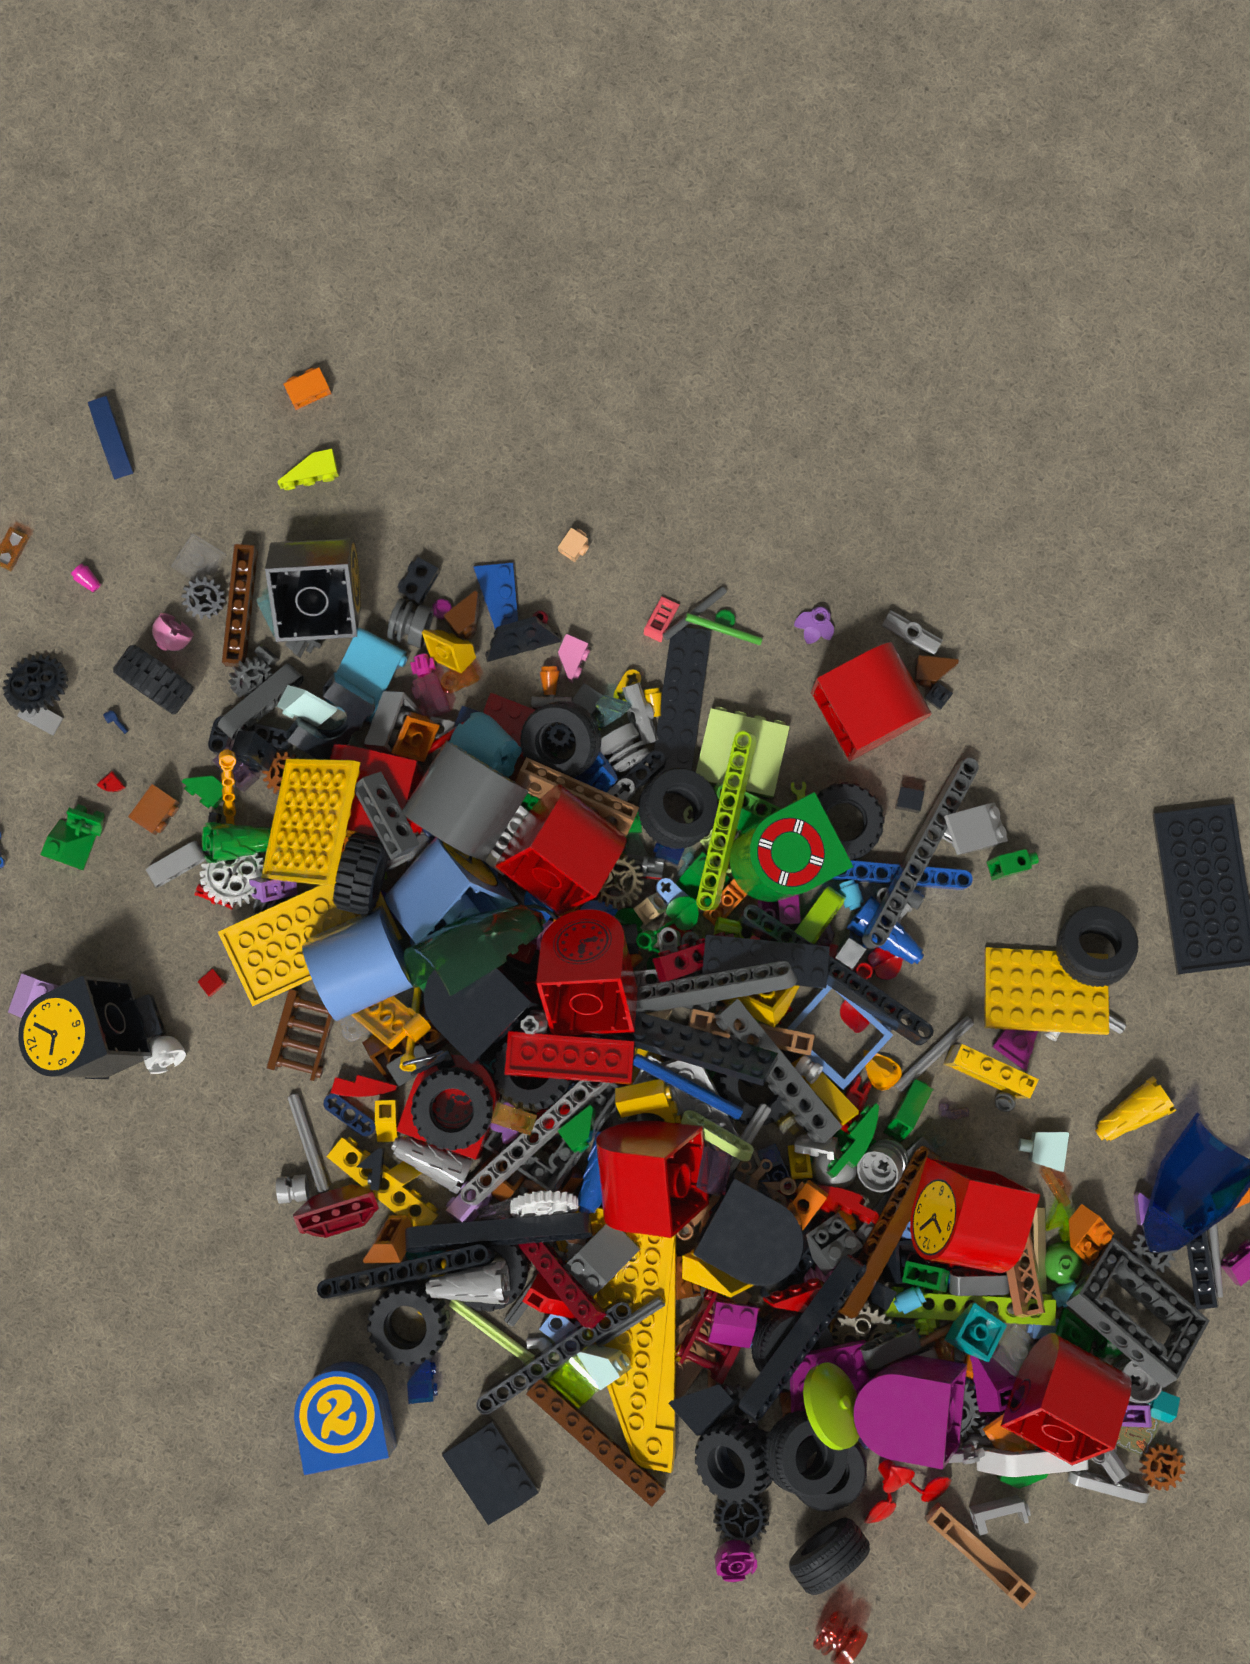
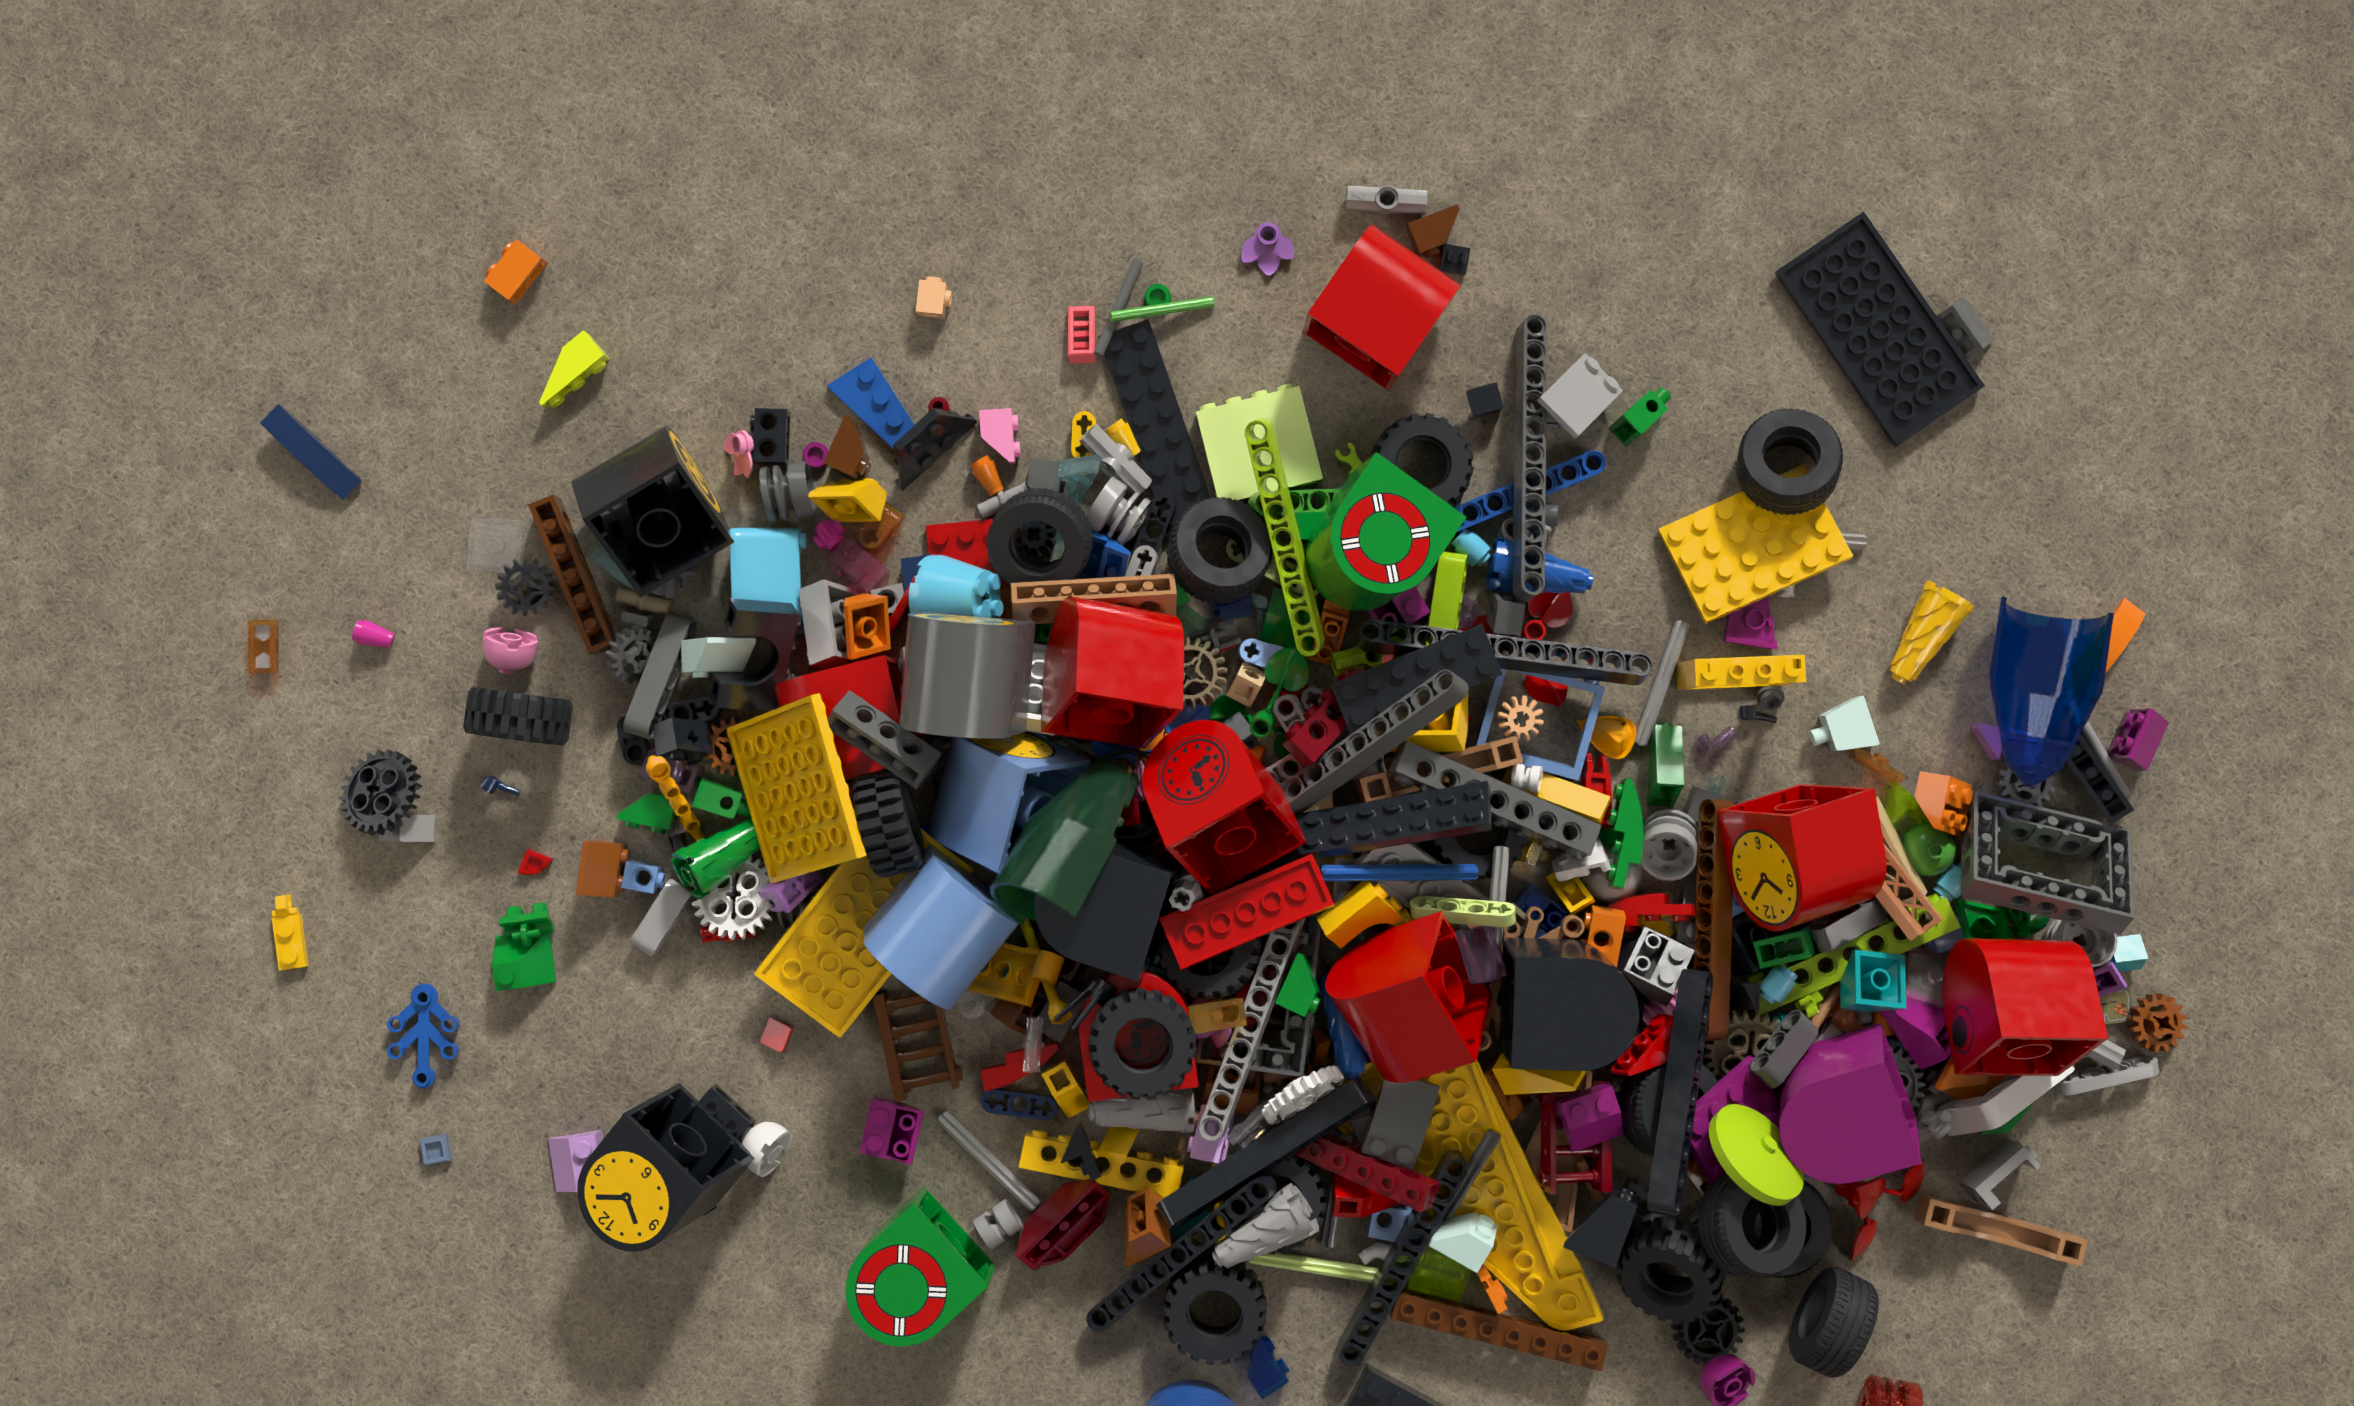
camera: 30 degrees left, 5 degrees up
(170, 827) = (632, 881): none -> medium blue brick
(217, 1189) = (915, 1274): none -> green brick
(251, 798) = (709, 797): none -> green torso
(254, 1087) = (891, 1130): none -> magenta slope
(276, 647) = (647, 602): none -> dark tan pin
(379, 1077) = (1033, 1044): none -> clear pin
(394, 578) = (741, 446): none -> bright pink plate
(606, 1411) = (1493, 1289): none -> orange plate
(829, 1031) = (1512, 714): none -> light nougat gear
(984, 1105) = (1748, 712): none -> black hand

